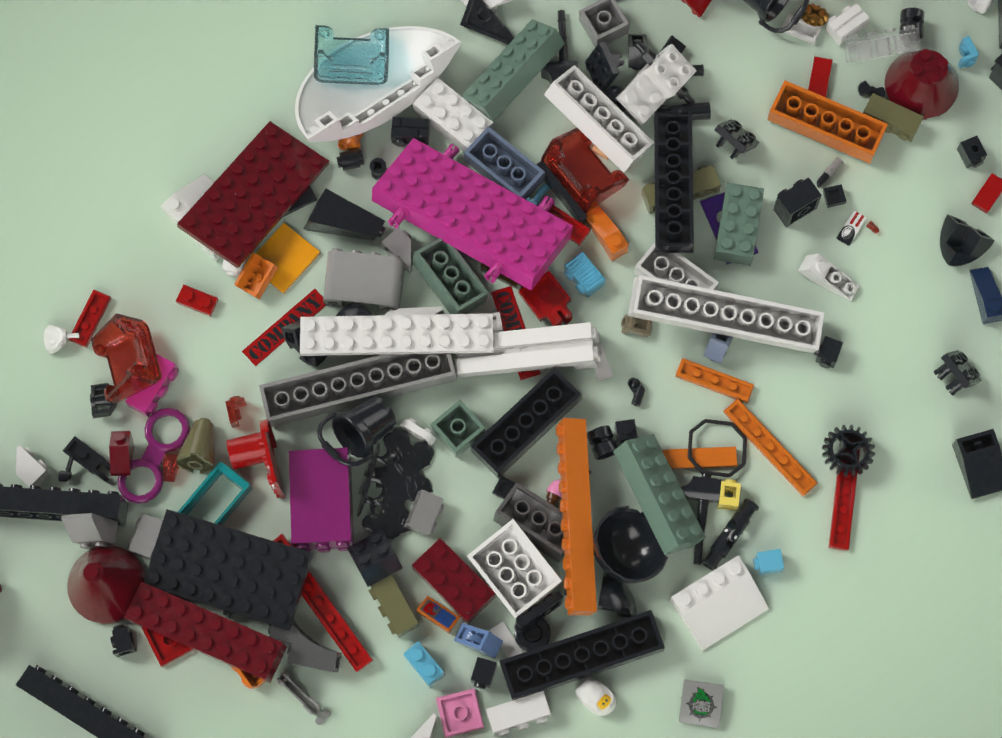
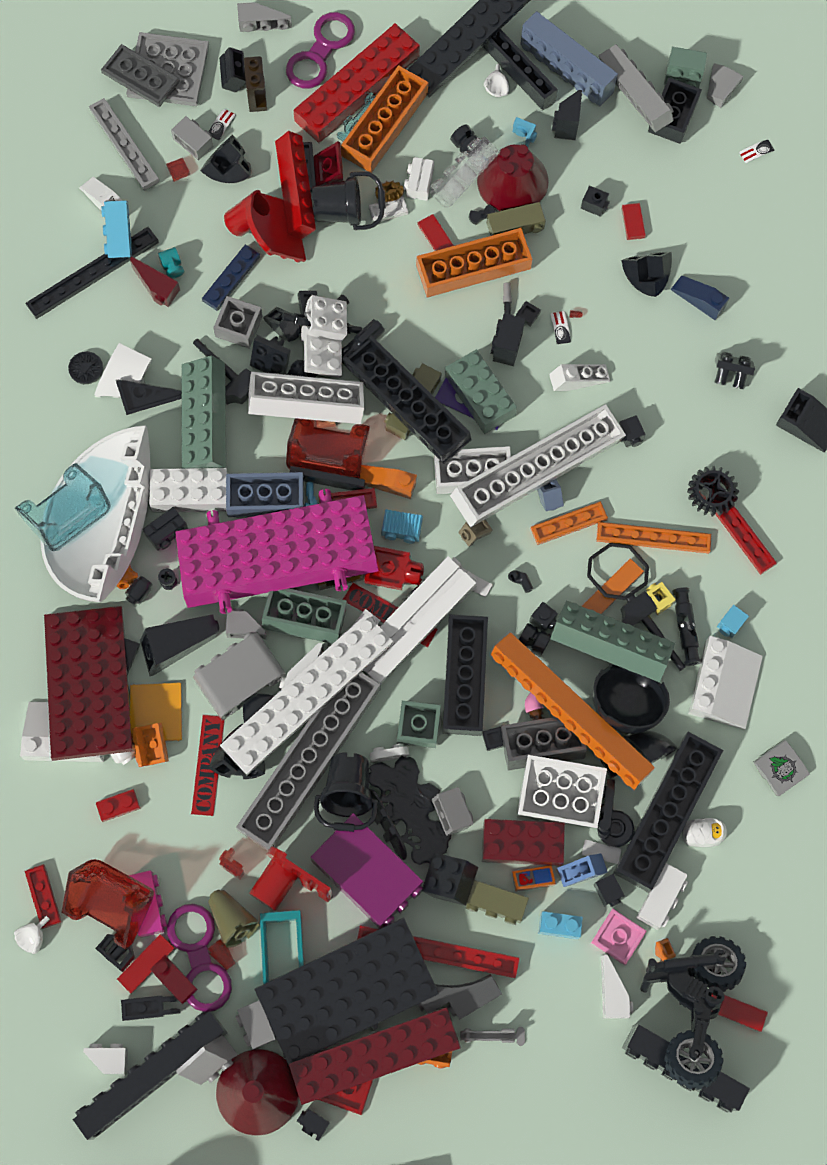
camera: 50 degrees left, 0 degrees up
(66, 475) = (142, 1038): black hand -> none
(102, 427) = (140, 968): none -> red tile
(736, 136) = (418, 327): black plate -> none

